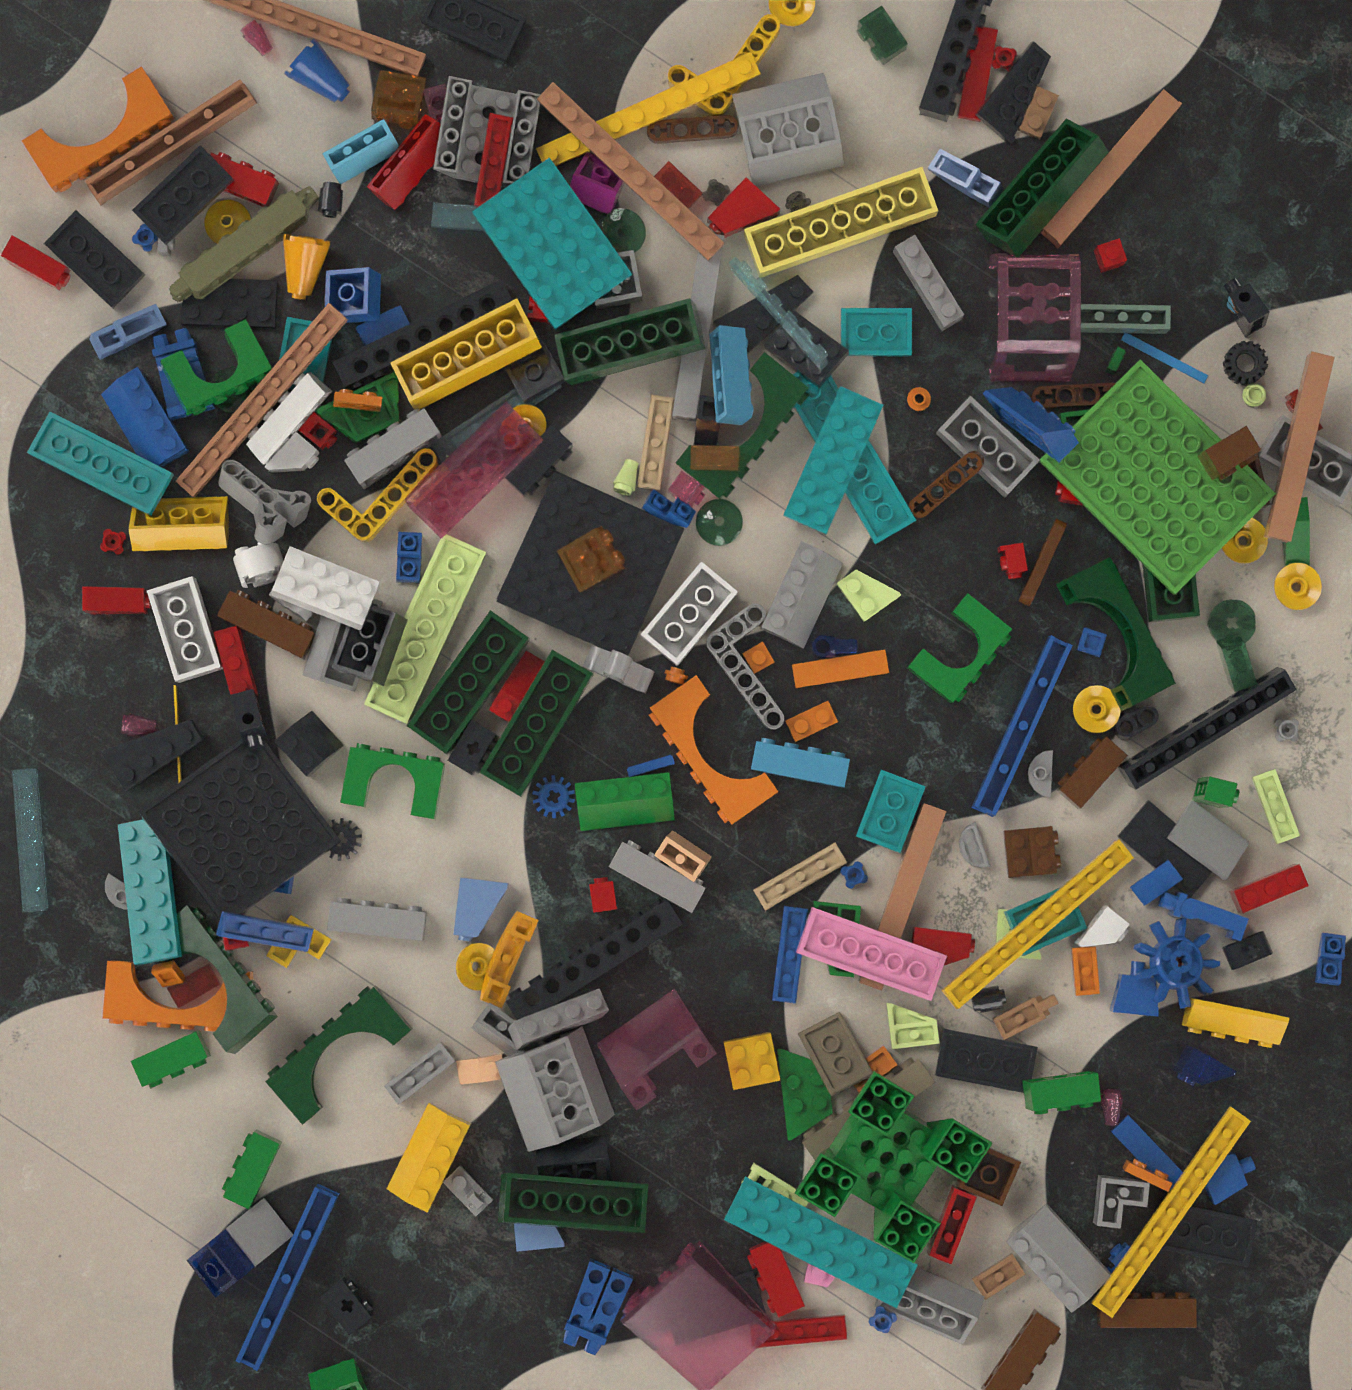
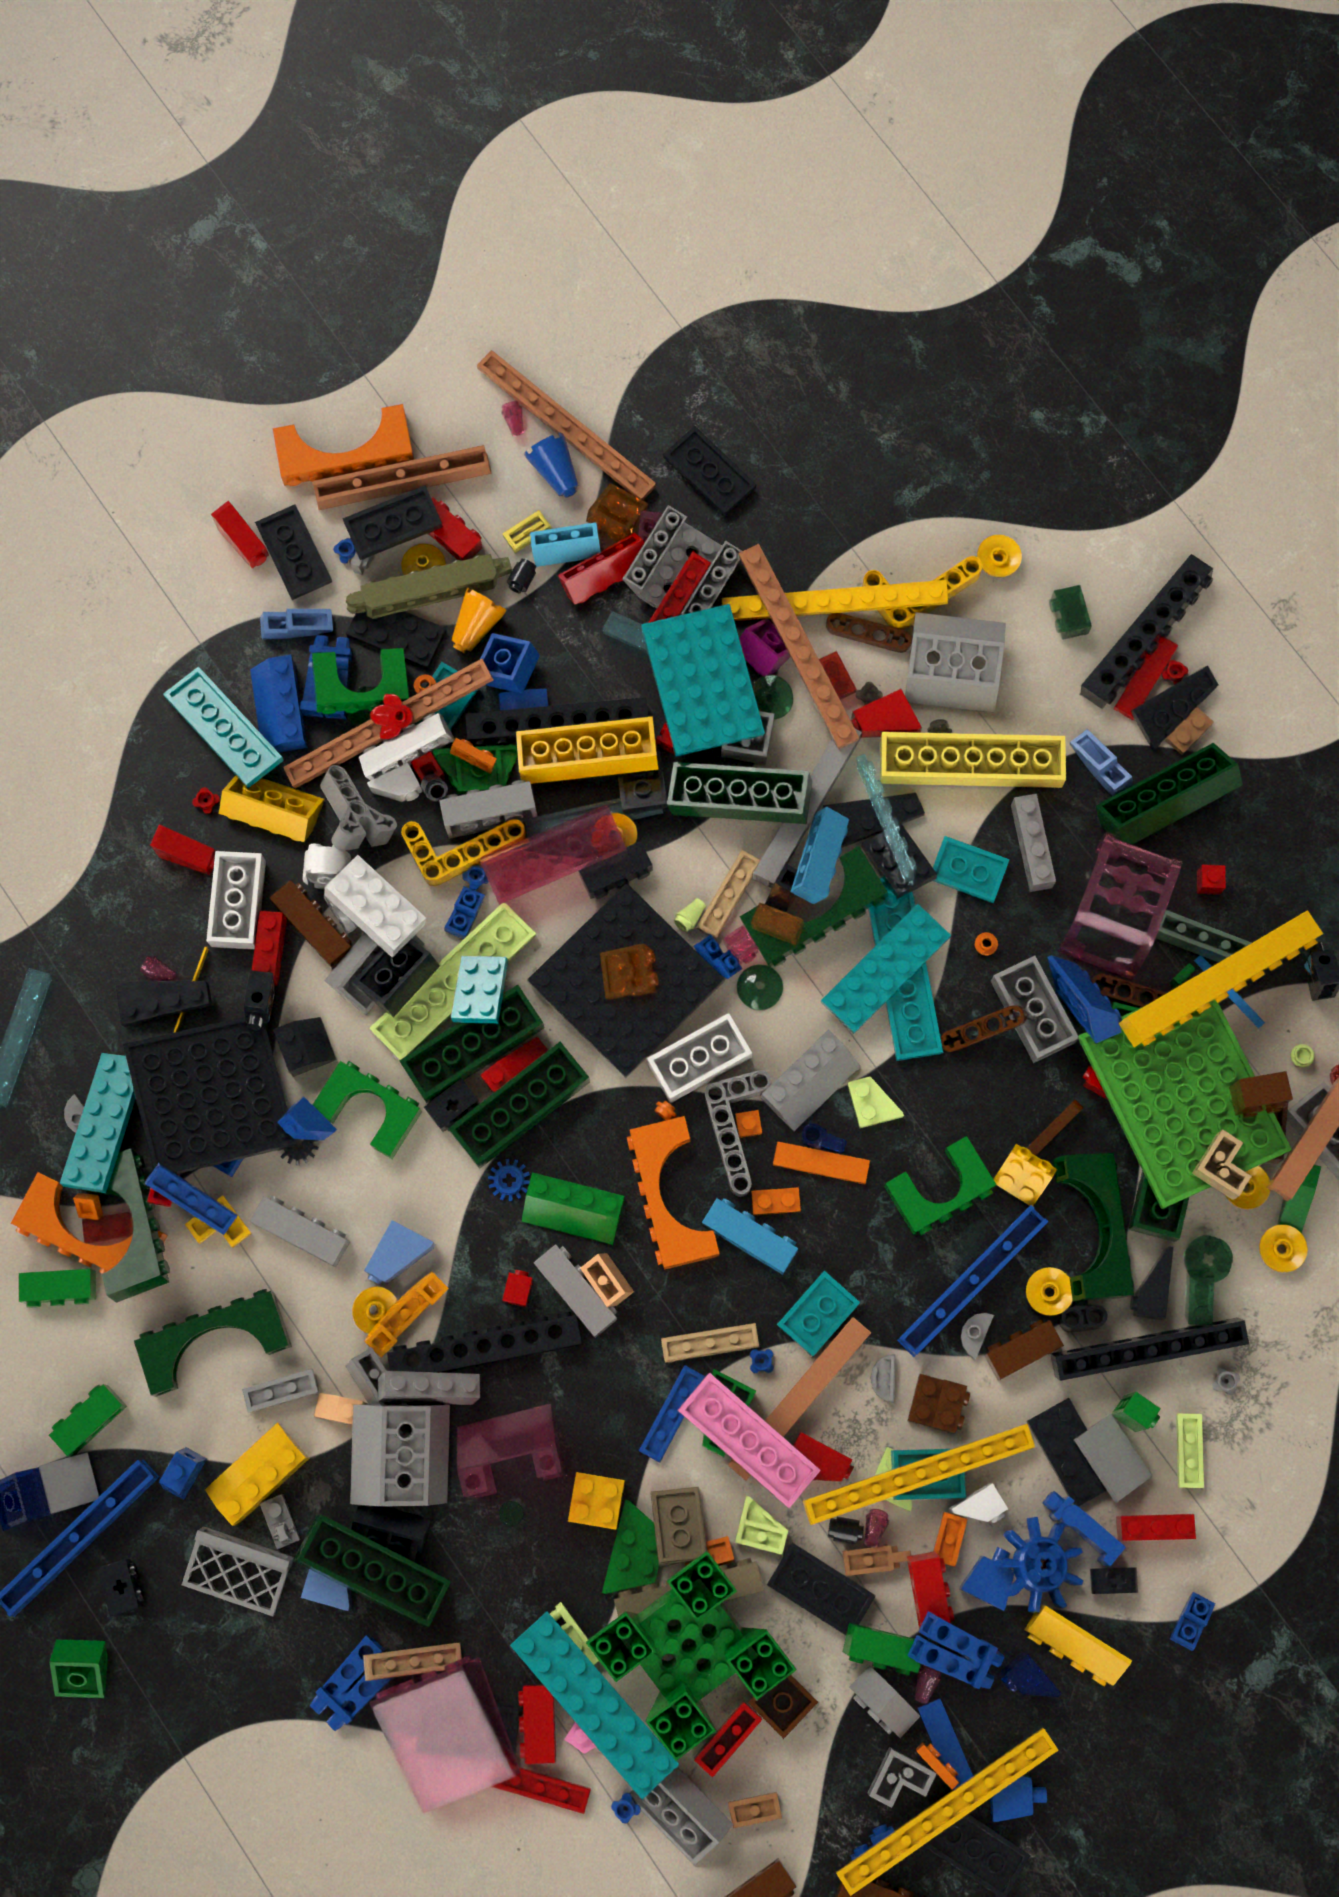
camera: 25 degrees right, 10 degrees down
(259, 393) = (388, 716): none -> red plate
(274, 344) = (423, 678): none -> orange plate
(298, 162) = (522, 544): none -> light yellow tile
(333, 448) = (436, 793): none -> black brick
(341, 817) = (306, 1122): none -> blue slope
(360, 1181) = (182, 1472): none -> blue torso
(403, 512) = (471, 873): none -> blue plate
(447, 1229) = (238, 1549): none -> light grey fence
(455, 628) = (479, 989): none -> plate
(619, 668) = (616, 1080): light grey beam -> none
(640, 1268) = (410, 1661): none -> tan tile
(650, 766) = (610, 1184): blue tile -> none
(677, 1101) = (511, 1513): none -> clear green tile
(1013, 560) = (1020, 1122): red brick -> none
(1014, 985) = (875, 1527): none -> clear pink cone
(1035, 609) = (1024, 1175): none -> yellow plate
(1058, 1257) = (820, 1814): light grey slope -> none
(1081, 1140) = (883, 1702): none -> light grey brick
(1086, 1025) = (928, 1586): none -> red brick
(1091, 642) = (1067, 1227): blue tile -> none
(1111, 168) = (1239, 803): nougat tile -> none
(1145, 1078) = (969, 1667): none -> blue hips
(1154, 354) = (1221, 978): none -> yellow brick
(1156, 882) = (1048, 1479): blue slope -> none
(1192, 674) = (1152, 1295): none -> black slope
(1212, 539) = (1216, 1166): none -> tan brick
(1255, 352) = (1316, 1016): black tyre -> none

